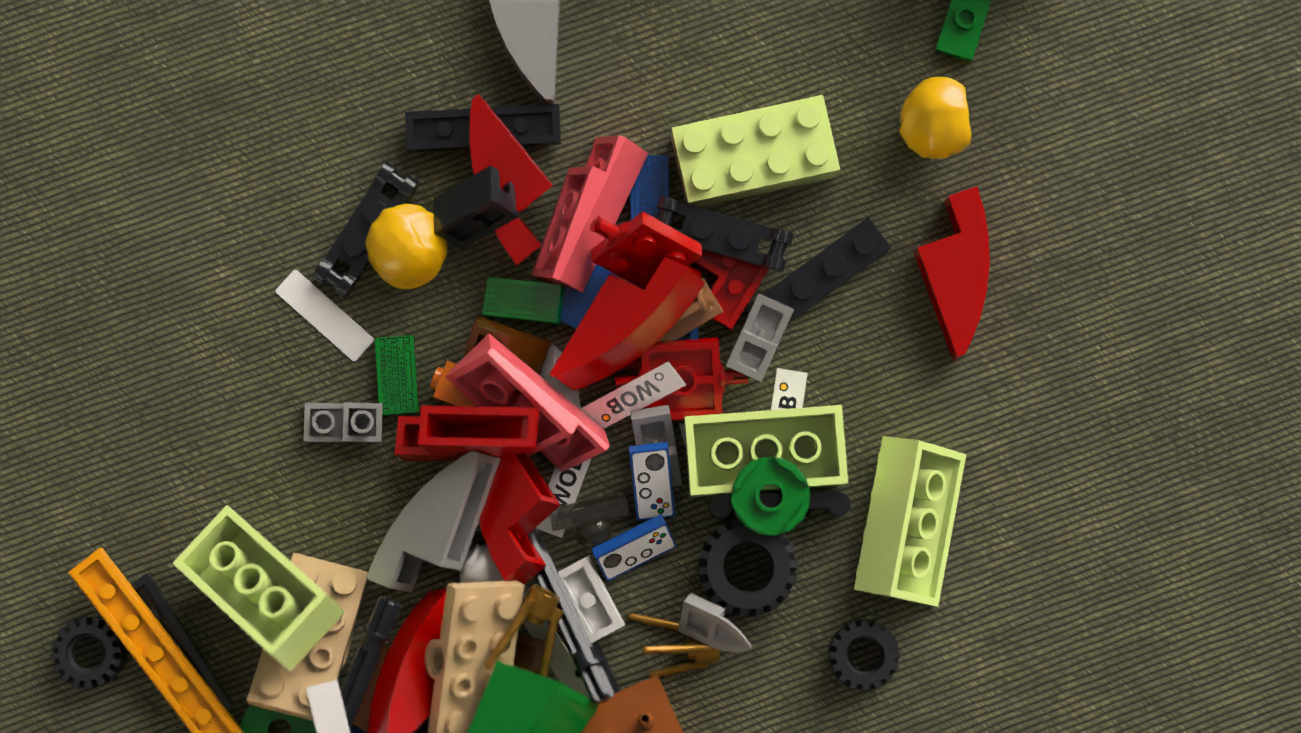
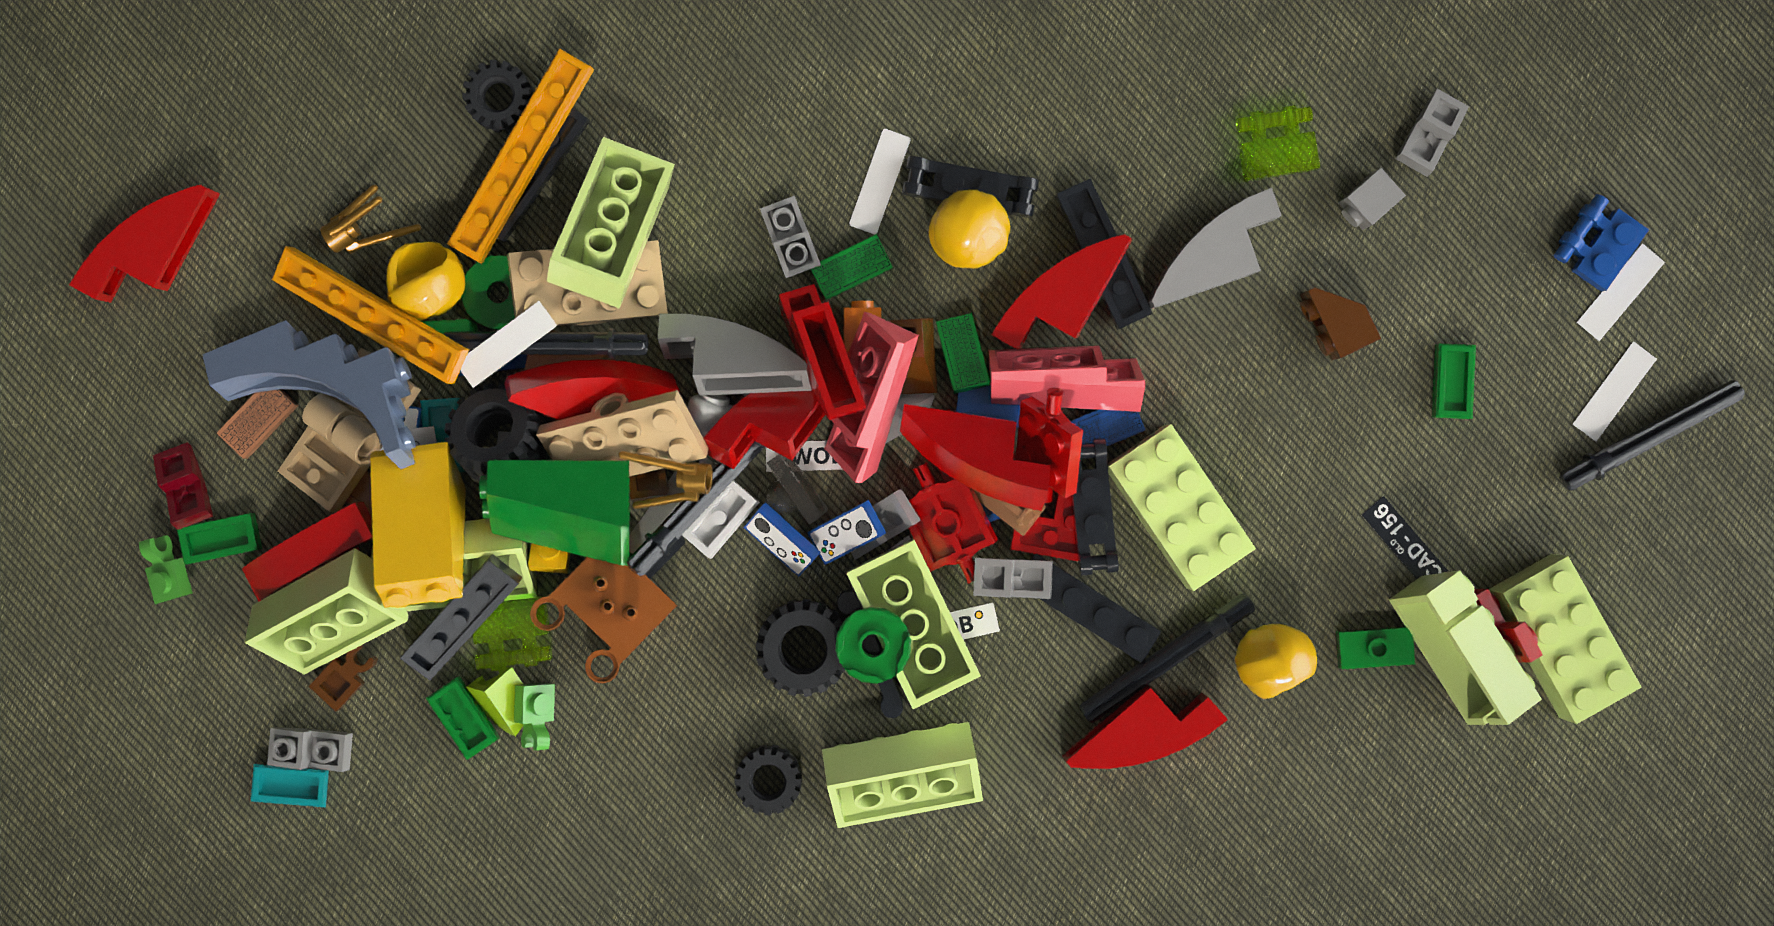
camera: 70 degrees right, 5 degrees up
(474, 208) = (1026, 276): black hinge -> none
(634, 395) = (916, 487): white sticker -> none
(693, 648) = (716, 633): pearl gold plant -> none
(707, 624) = (738, 632): light grey plate -> none
(896, 221) = (1167, 657): none -> black axle

